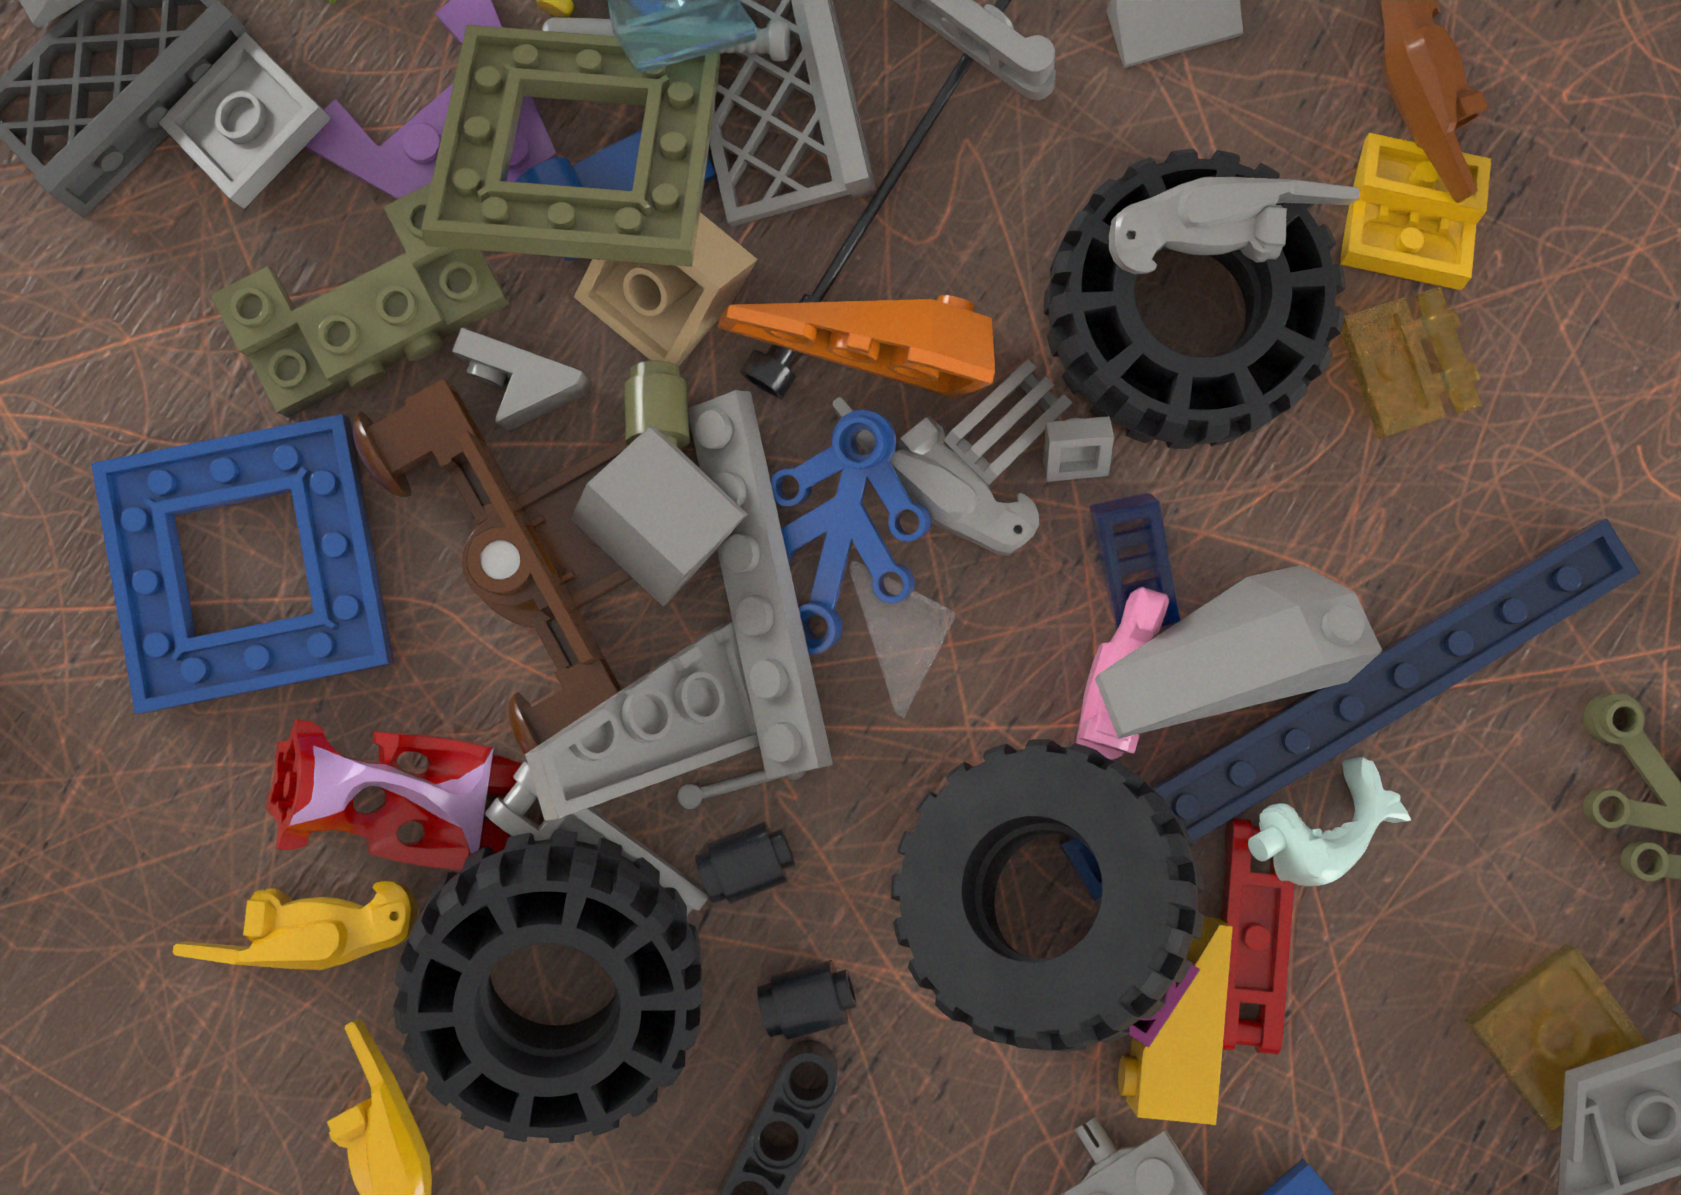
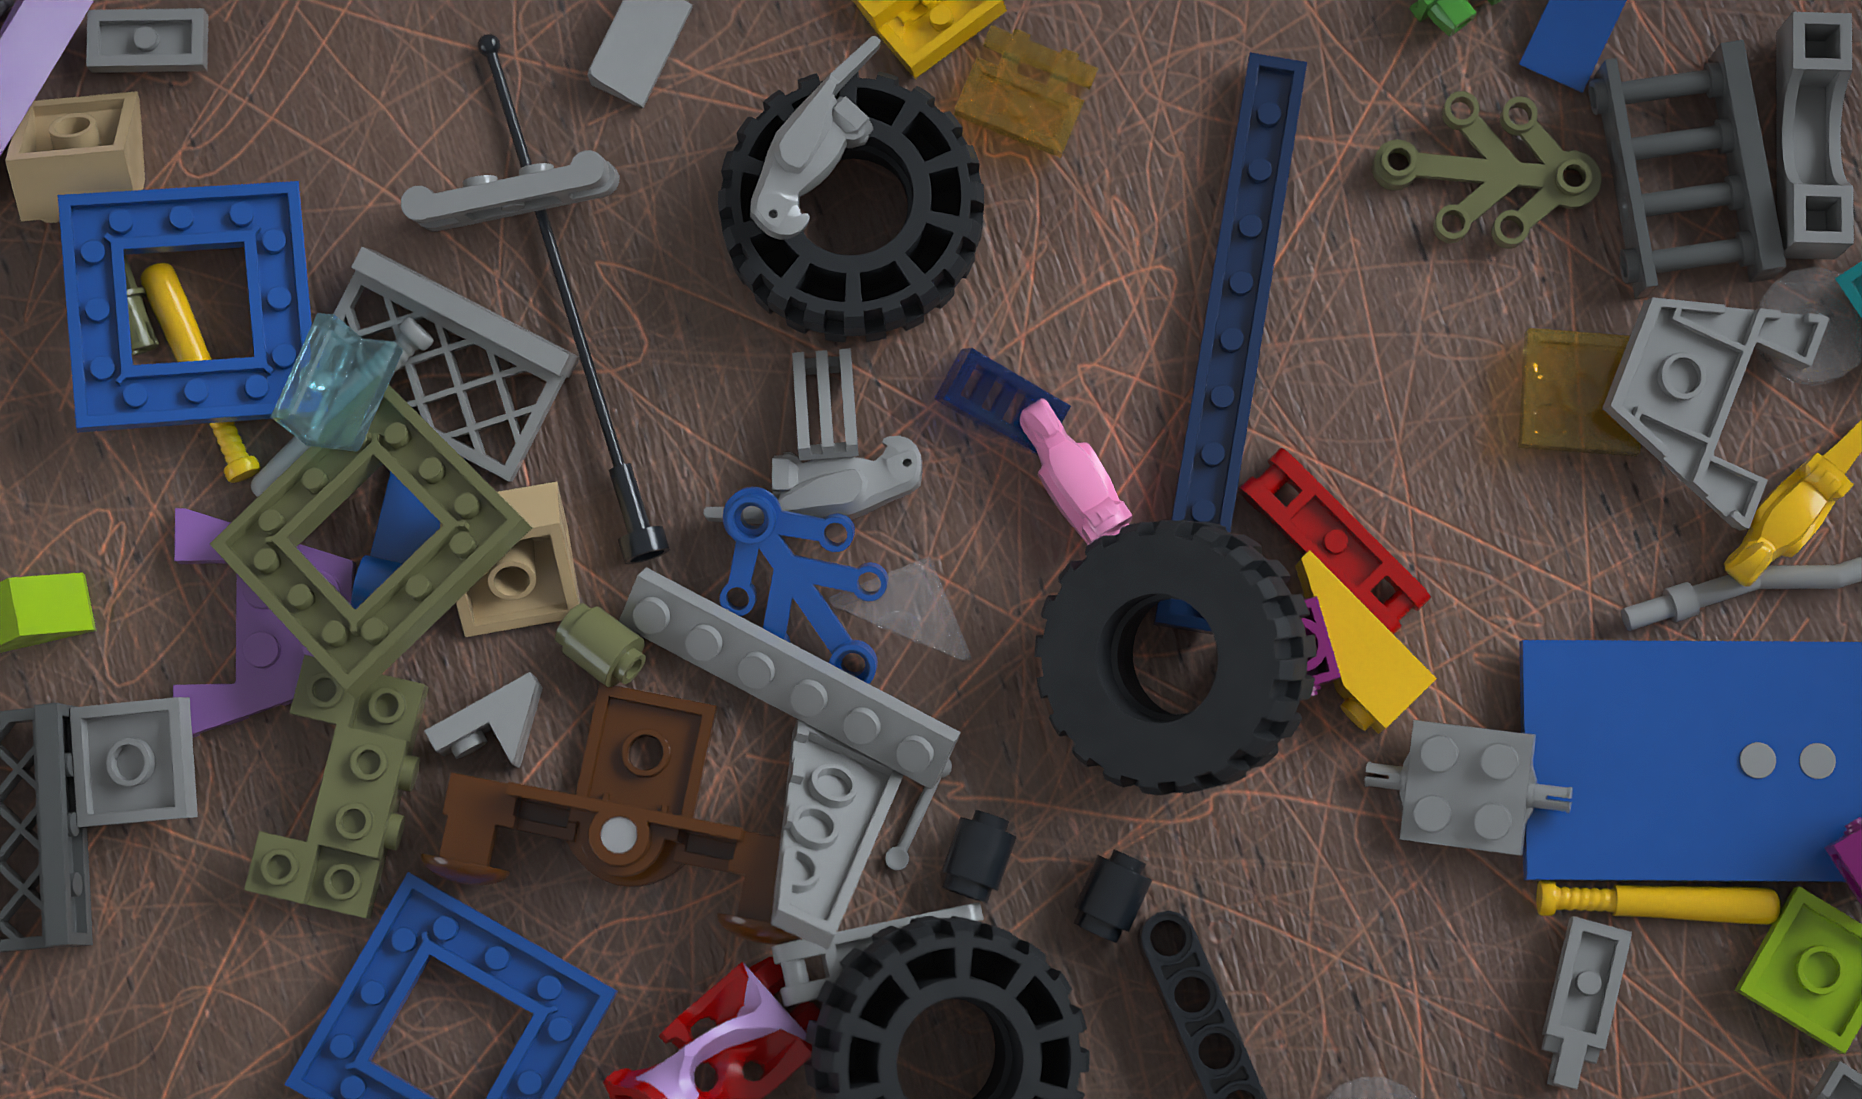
camera: 45 degrees left, 5 degrees down
(656, 514) = (678, 706): light grey slope -> none
(913, 342) = (712, 422): orange wedge -> none
(1077, 448) = (886, 372): light grey plate -> none
(1242, 649) = (1123, 380): light grey wedge -> none
(1320, 858) = (1304, 456): light aqua animal -> none

